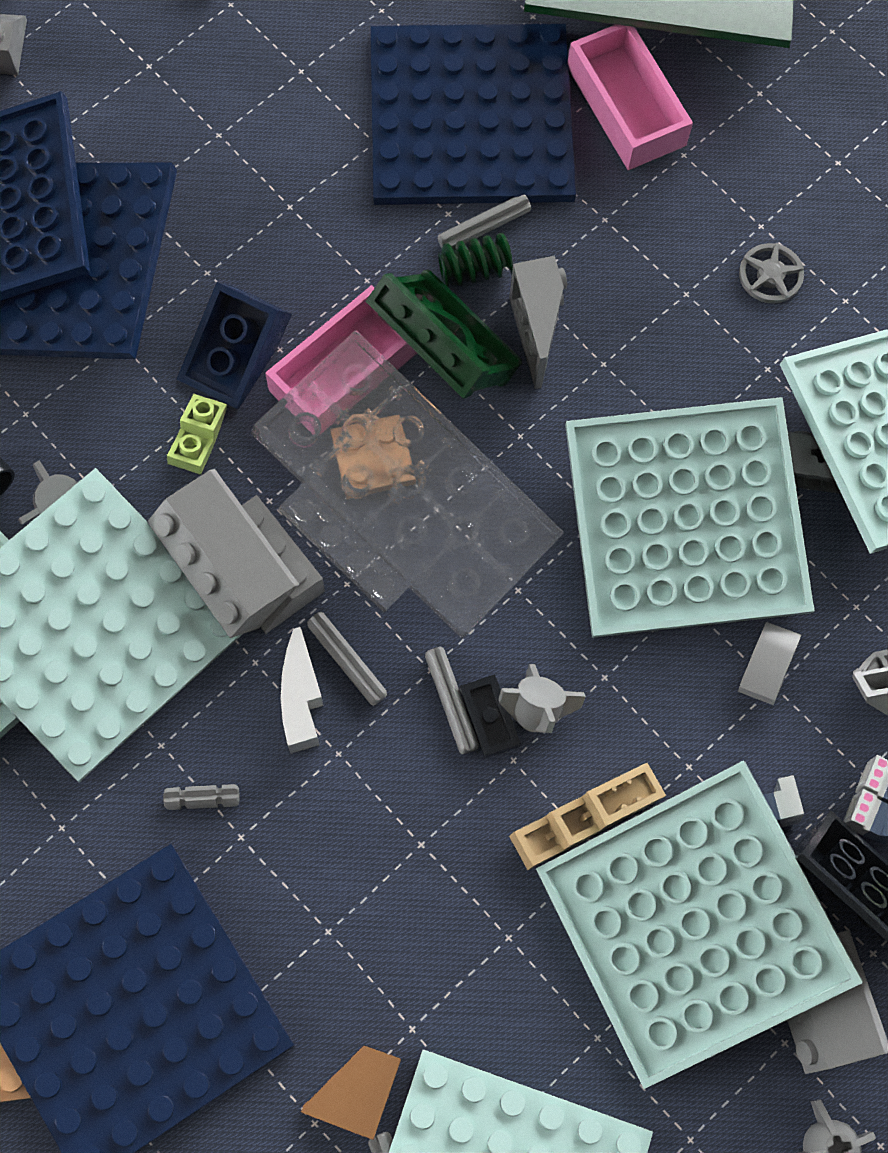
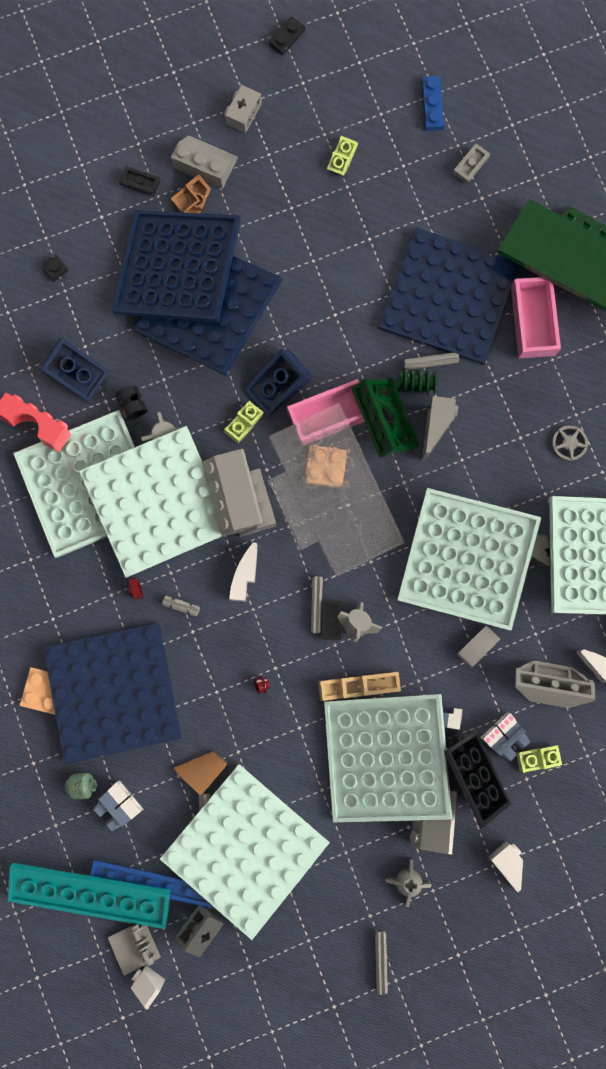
camera: 25 degrees right, 10 degrees up
(103, 797) = (135, 589): none -> dark red plate
(347, 658) = (274, 564): light grey axle -> none
(407, 883) = (261, 684): none -> dark red plate

